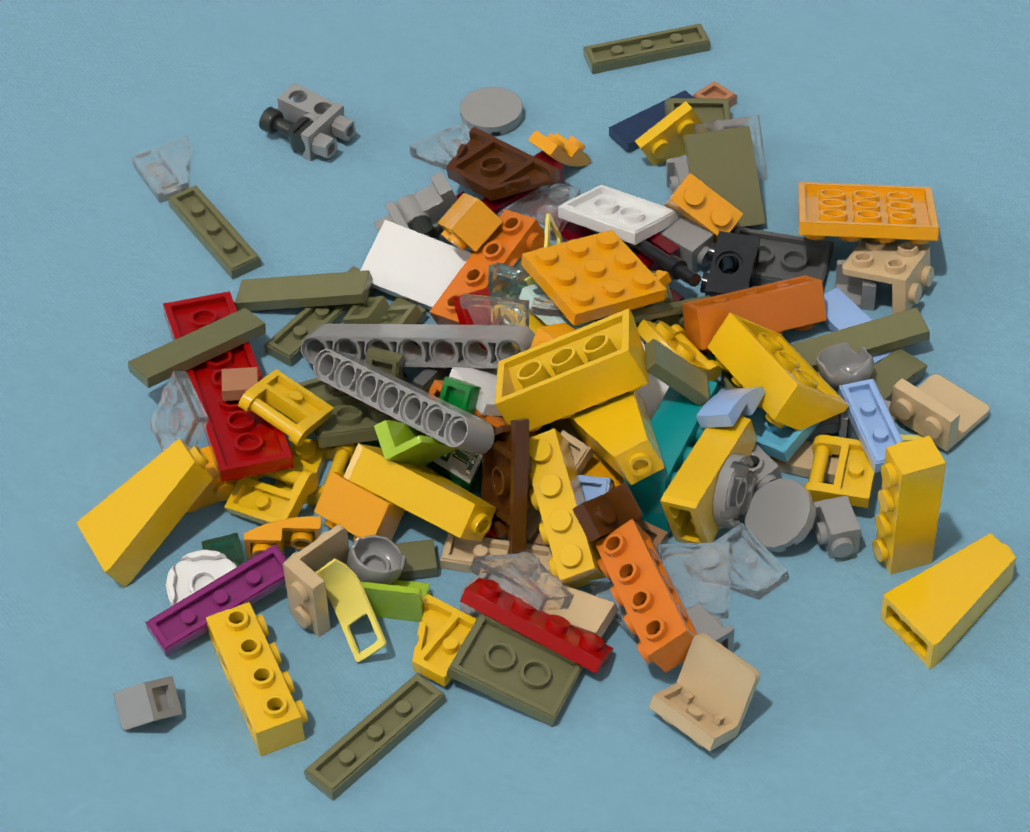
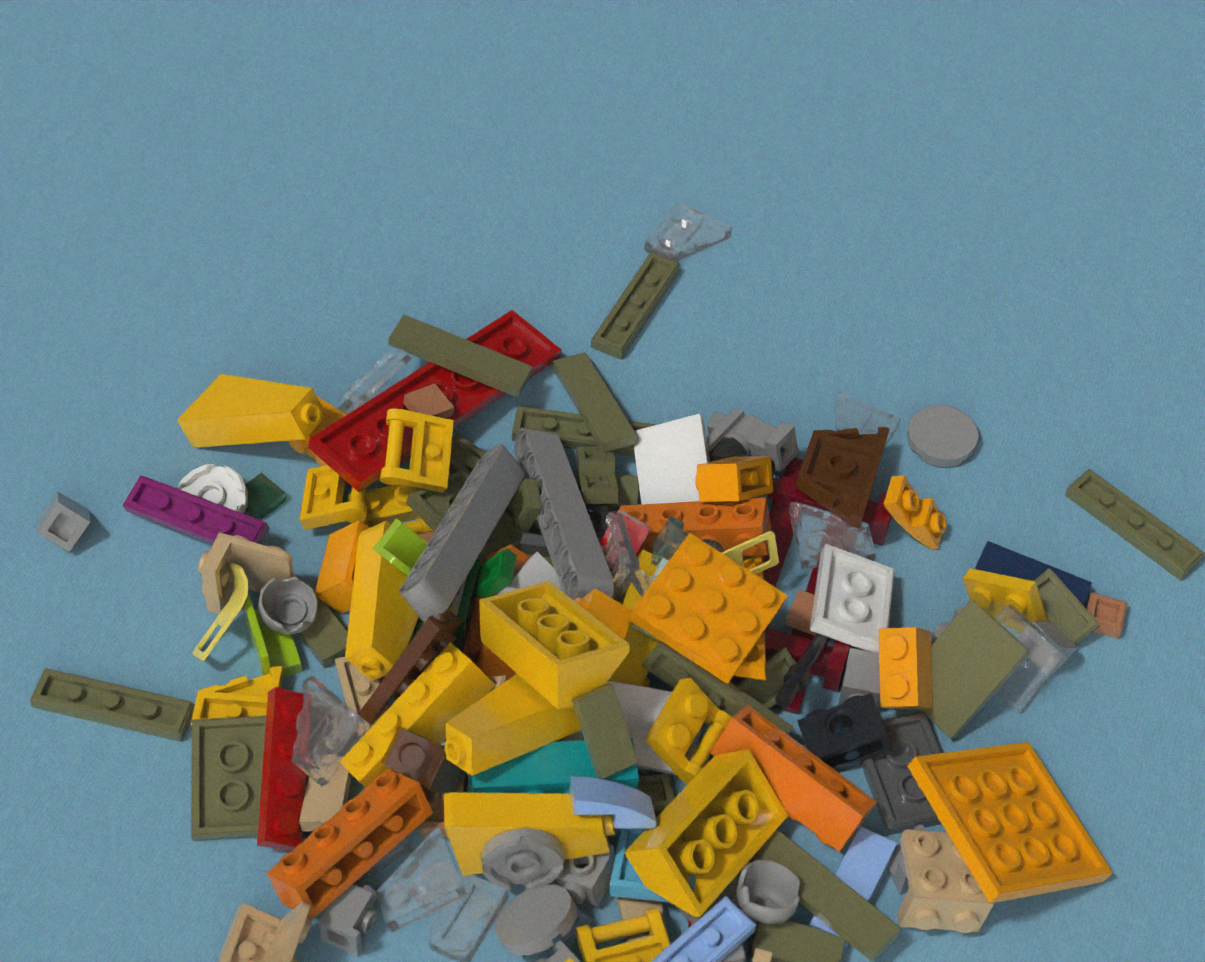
camera: 55 degrees right, 5 degrees up
(256, 678) = (124, 584): yellow brick -> none
(290, 532) = (290, 527): light orange slope -> none
(308, 122) = (815, 312): light grey hips -> none

